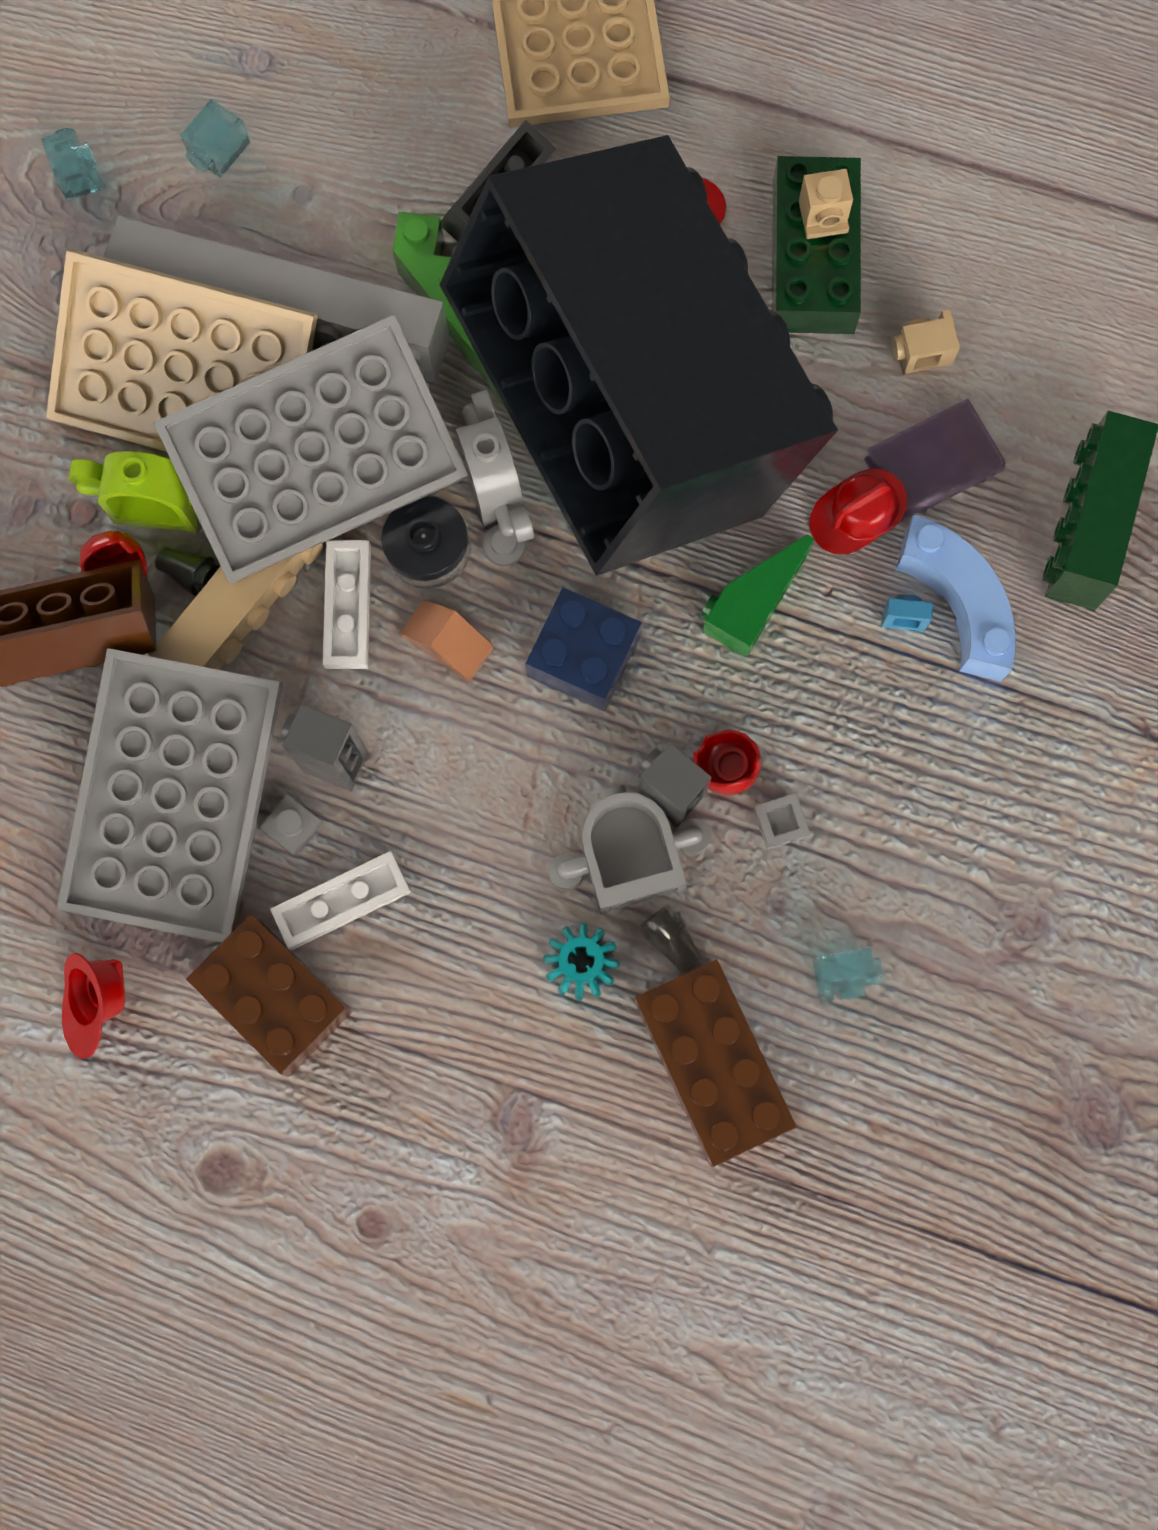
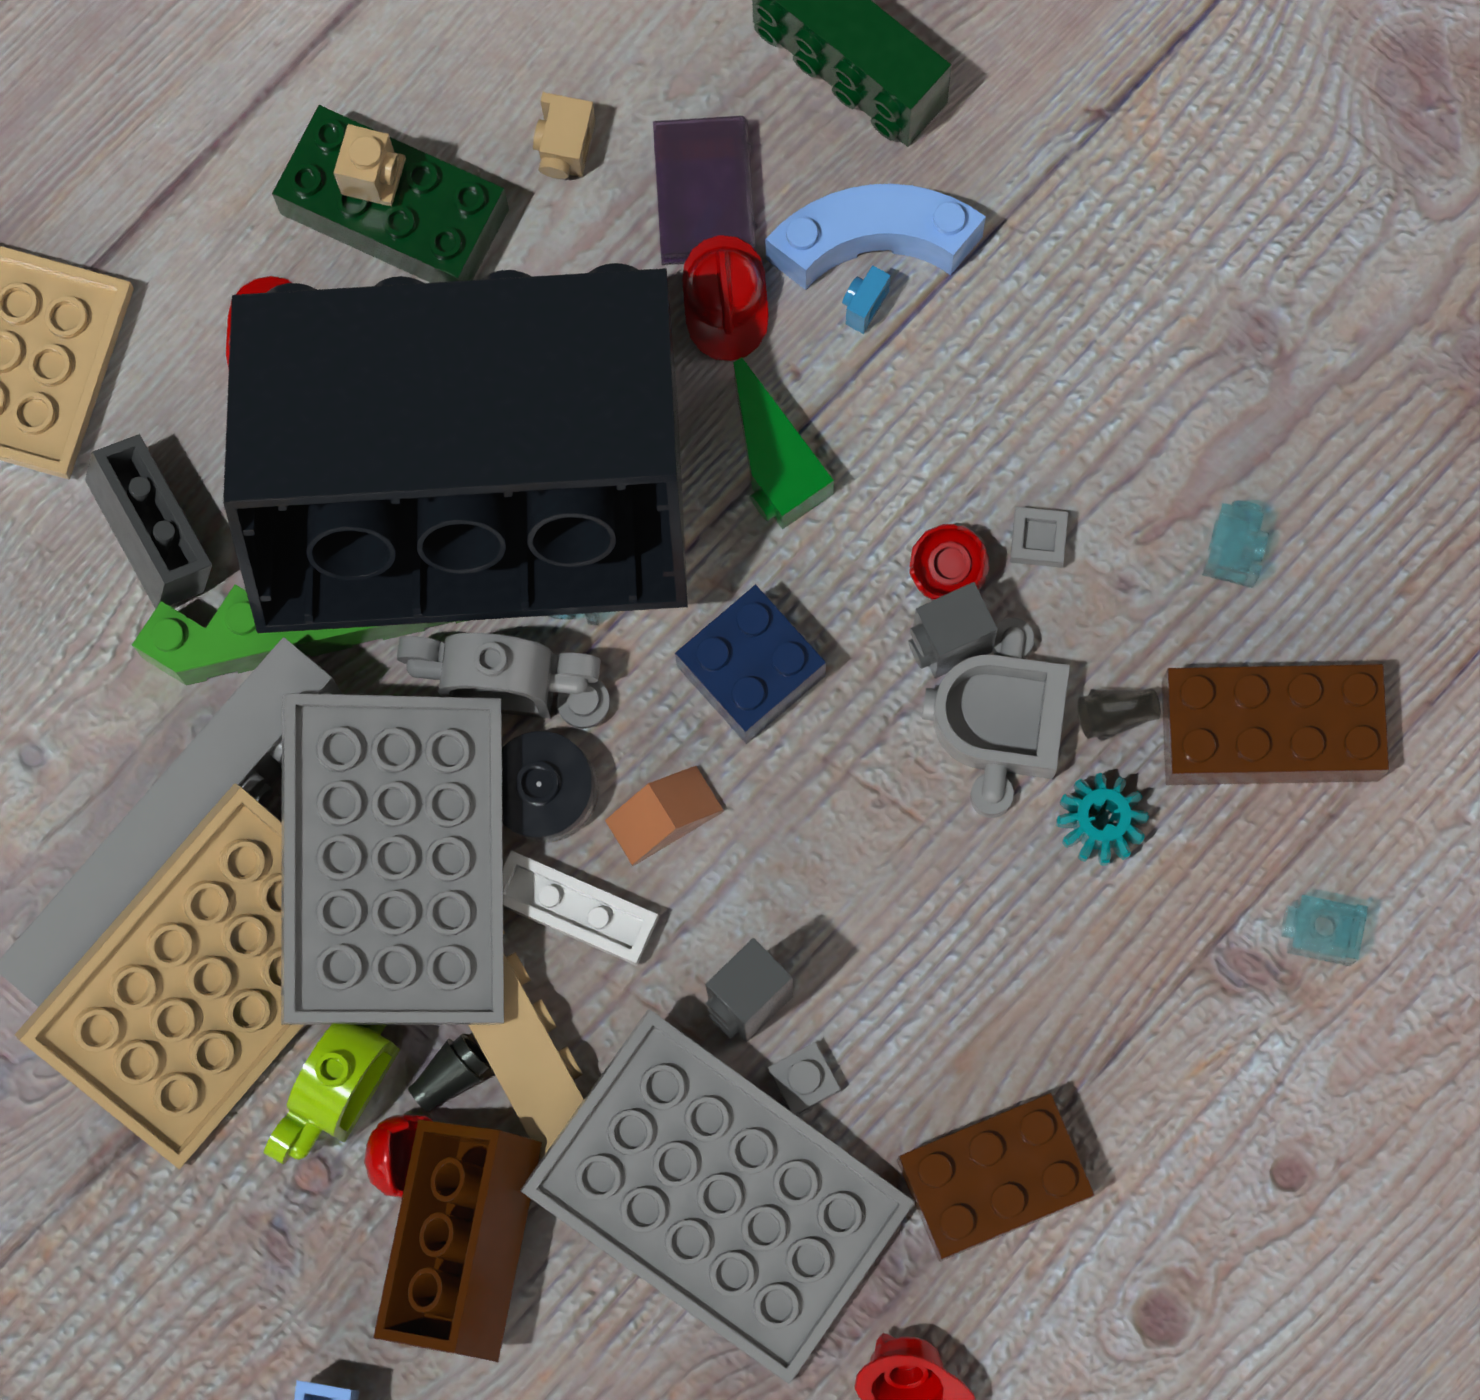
camera: 65 degrees left, 0 degrees up
(340, 900) = (918, 1056): white plate -> none
(573, 1188) = (1339, 947): none -> clear light blue brick

